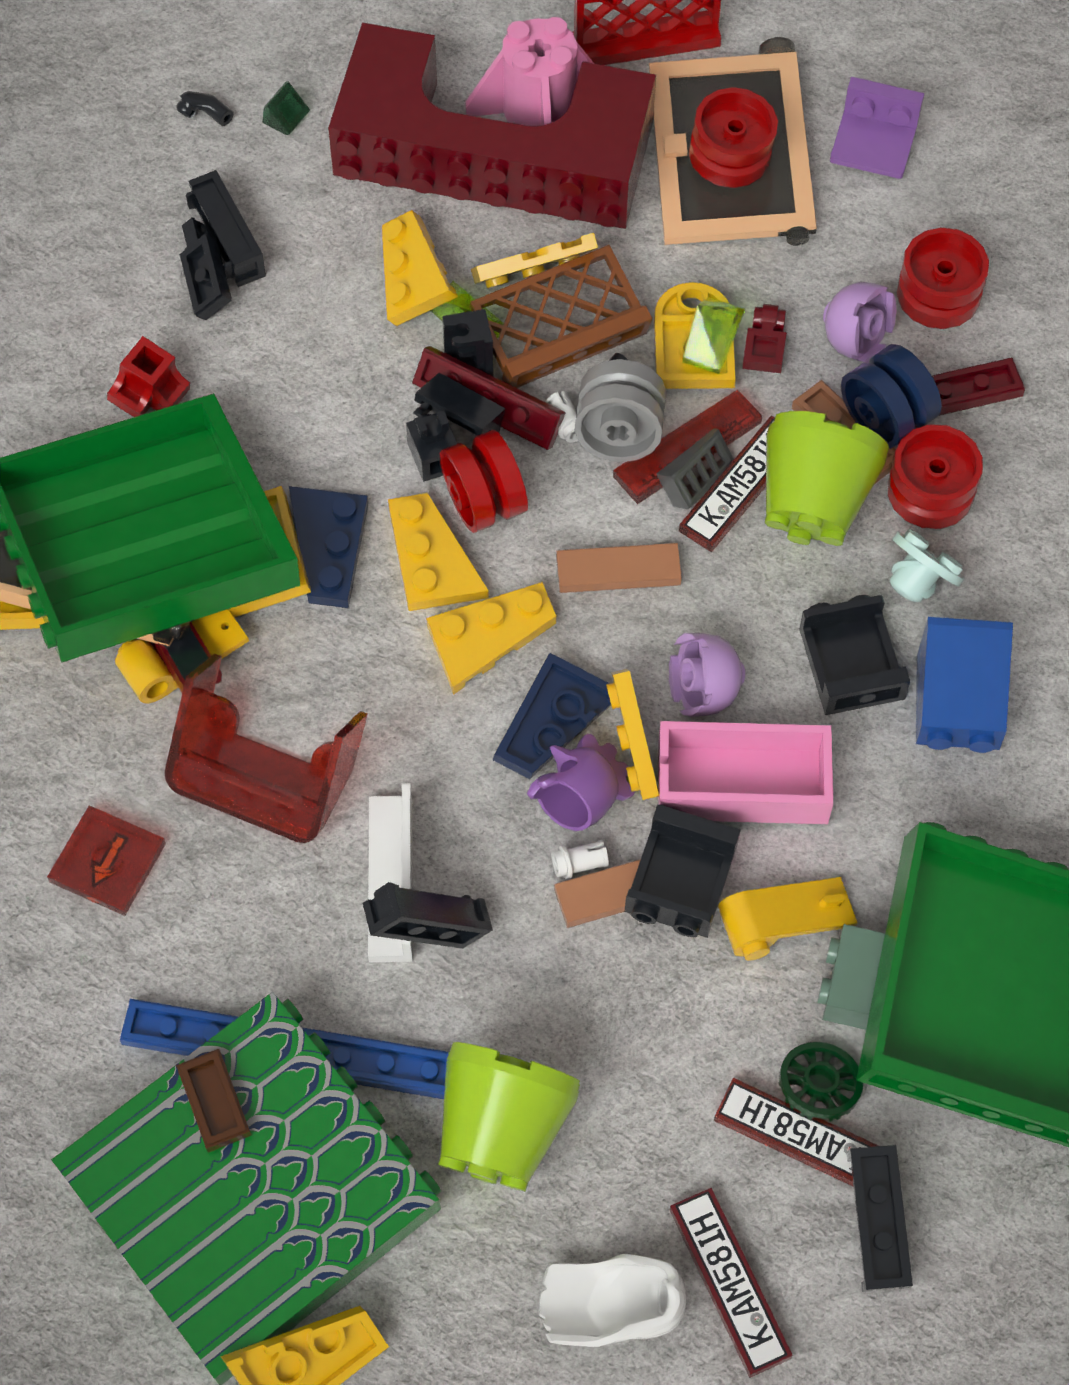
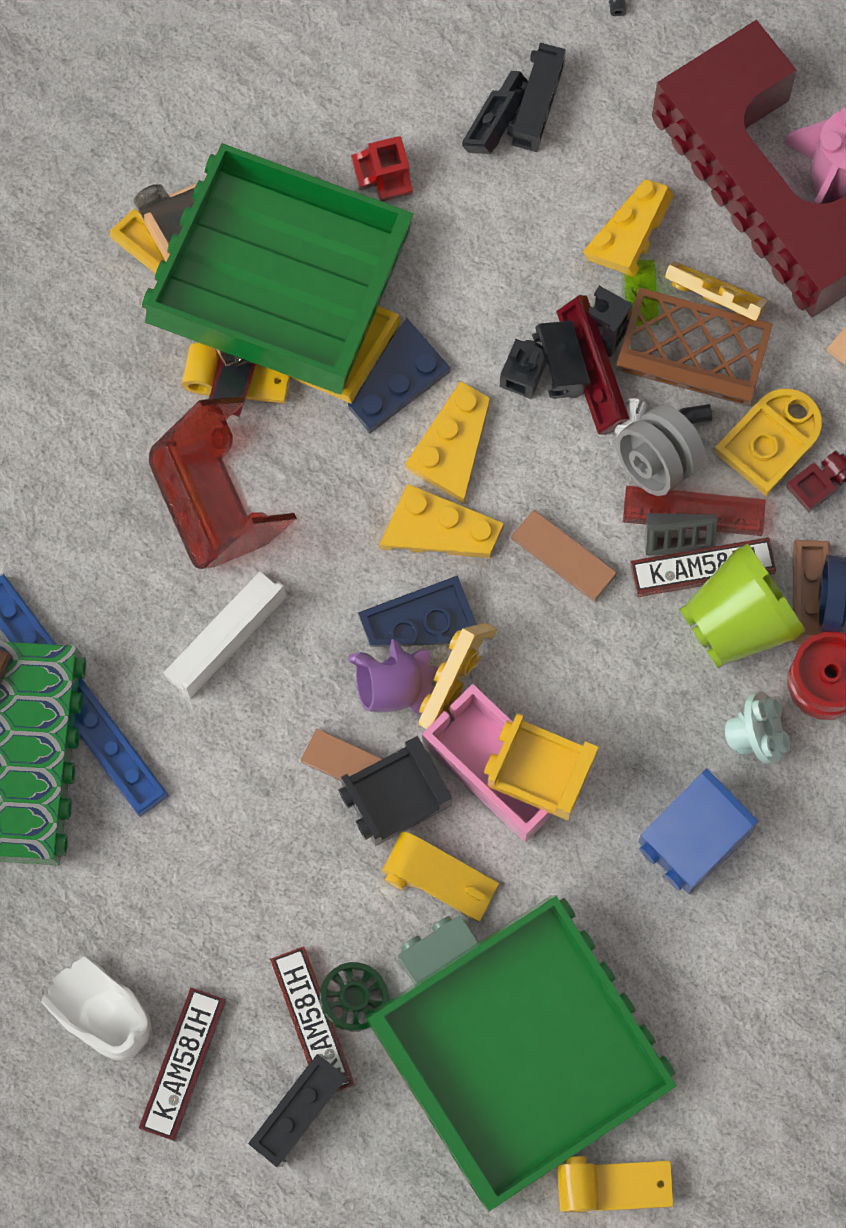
camera: 45 degrees right, 10 degrees up
(106, 860) = (71, 473): clear red tile -> none
(285, 109) = (662, 38): clear green slope -> none
(426, 916) = (209, 681): black container -> none
(484, 481) = (519, 421): red wheel -> none
(501, 1114) = (137, 841): lime cone -> none
(579, 859) = (347, 725): white pin -> none
(705, 674) = (542, 678): lavender cylinder -> none
(712, 334) = (783, 445): clear neon green slope -> none
(794, 735) = (540, 767): none -> yellow panel
(852, 655) = (654, 747): black panel -> none

